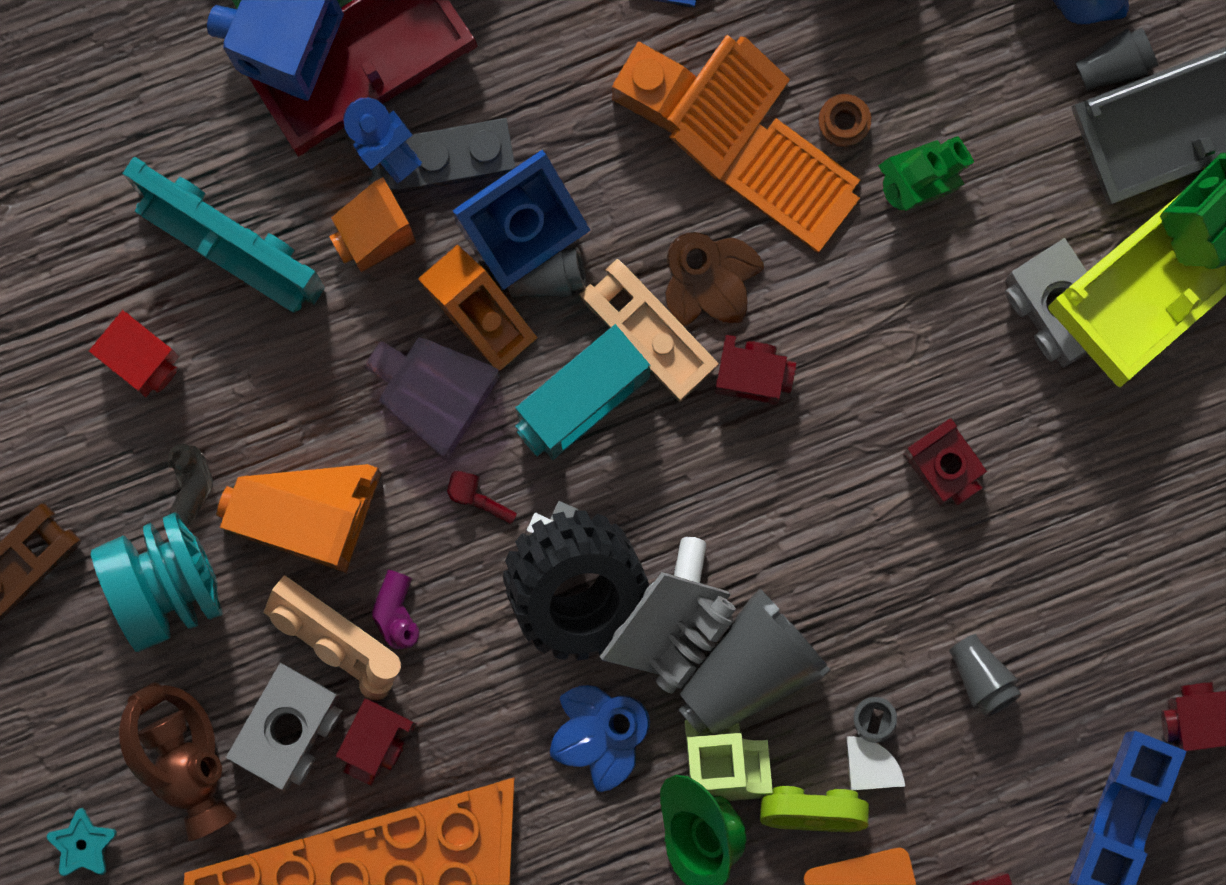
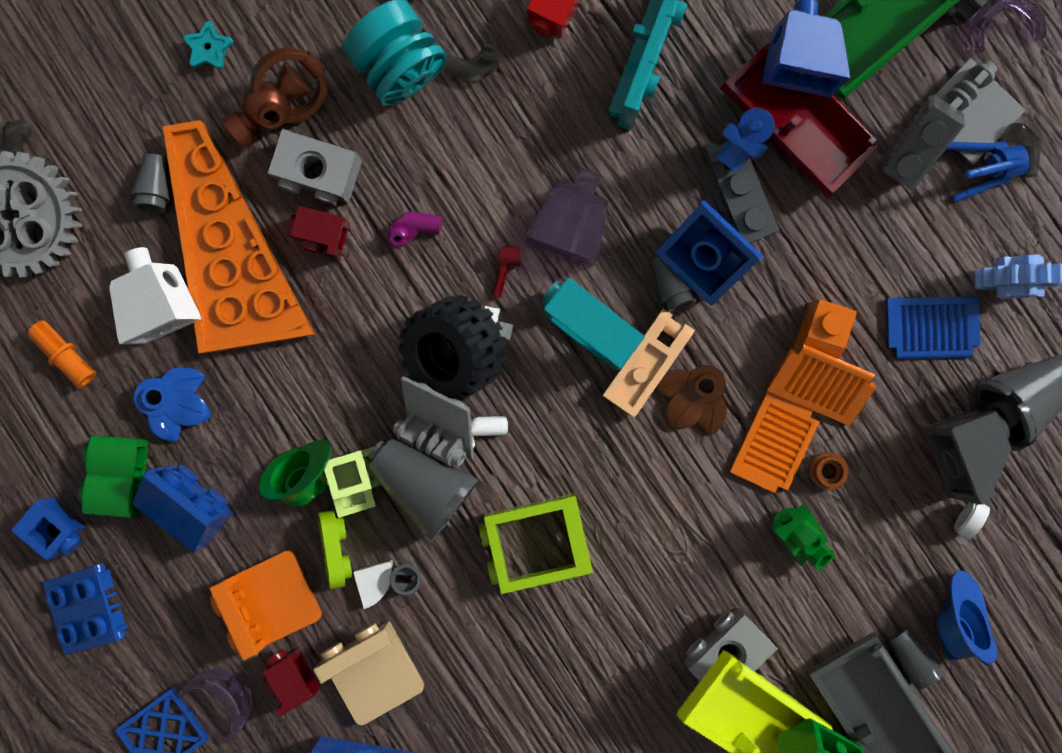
camera: 75 degrees right, 5 degrees up
(303, 512) = (465, 147): orange slope -> none
(333, 638) = (384, 187): light nougat plate -> none
(371, 227) = (680, 150): orange slope -> none
(477, 307) = (638, 238): orange slope -> none
(592, 738) = (354, 382): blue plate -> none
(754, 372) = (634, 444): dark red brick -> none
(862, 476) = (497, 567): none -> lime window
(926, 457) = (600, 580): dark red brick -> none
(985, 678) = (451, 650): dark grey cone -> none
(994, 792) = (371, 672): none -> tan bracket

